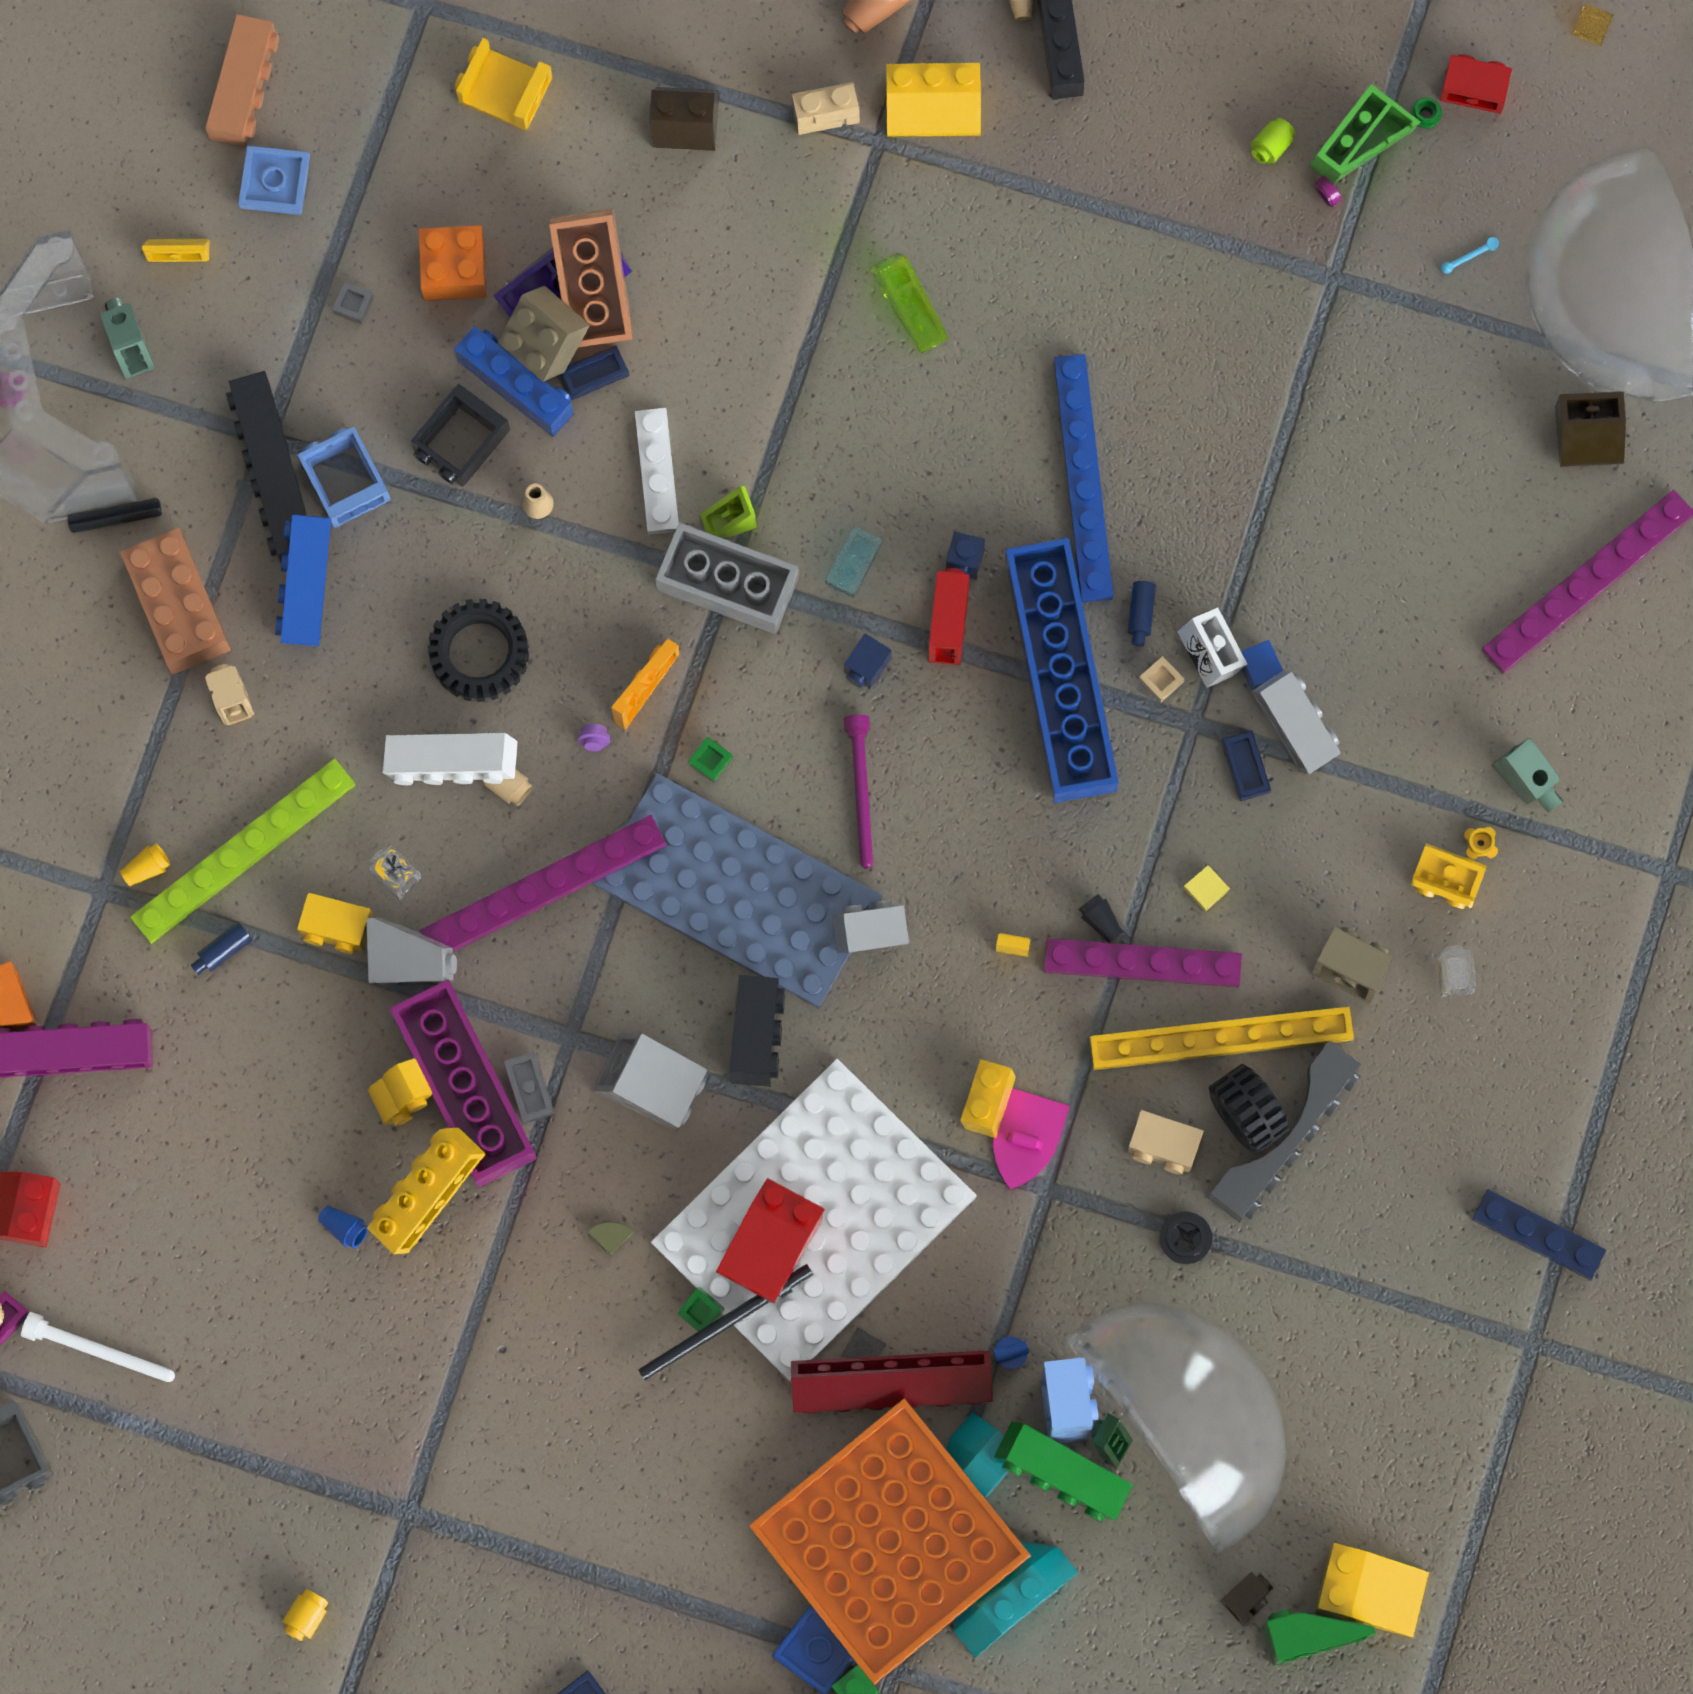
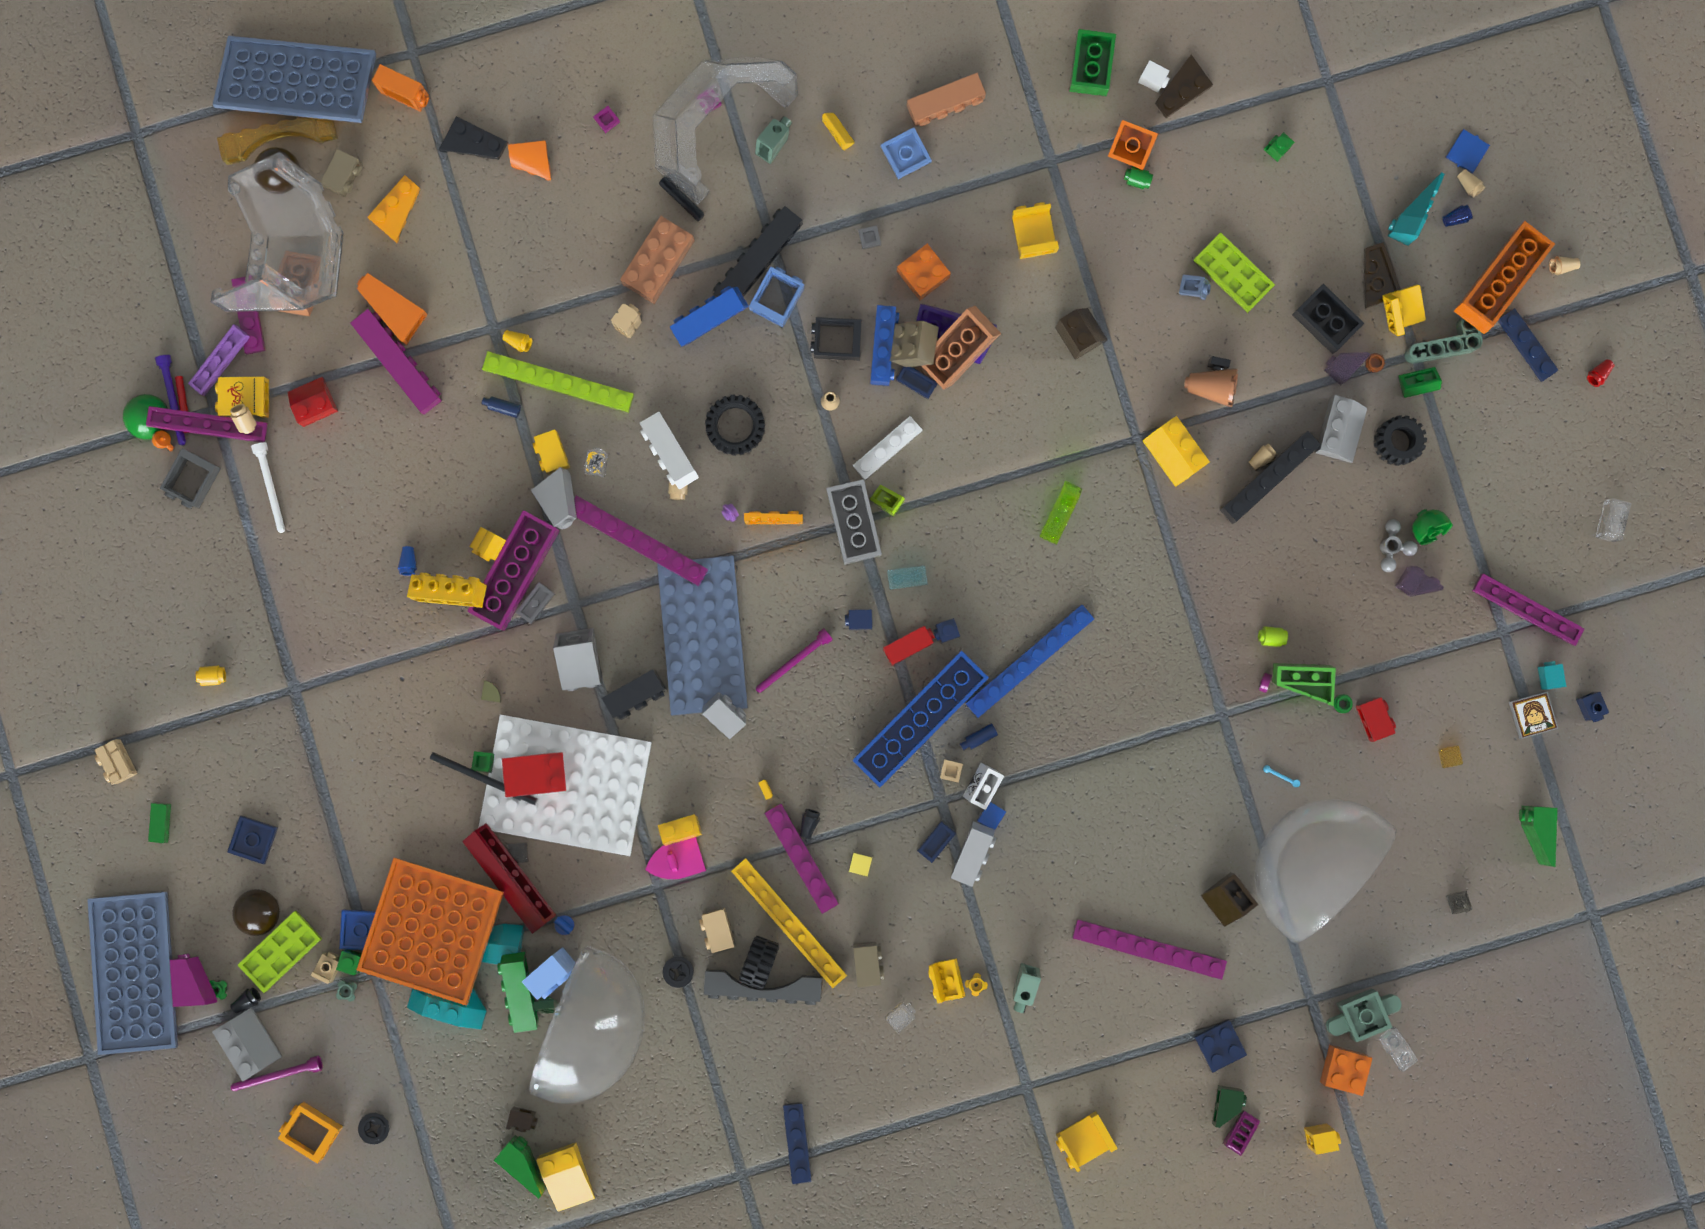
camera: 50 degrees right, 10 degrees up
(710, 759) = (758, 577): green plate -> none
(825, 108) = (1133, 400): tan brick -> none

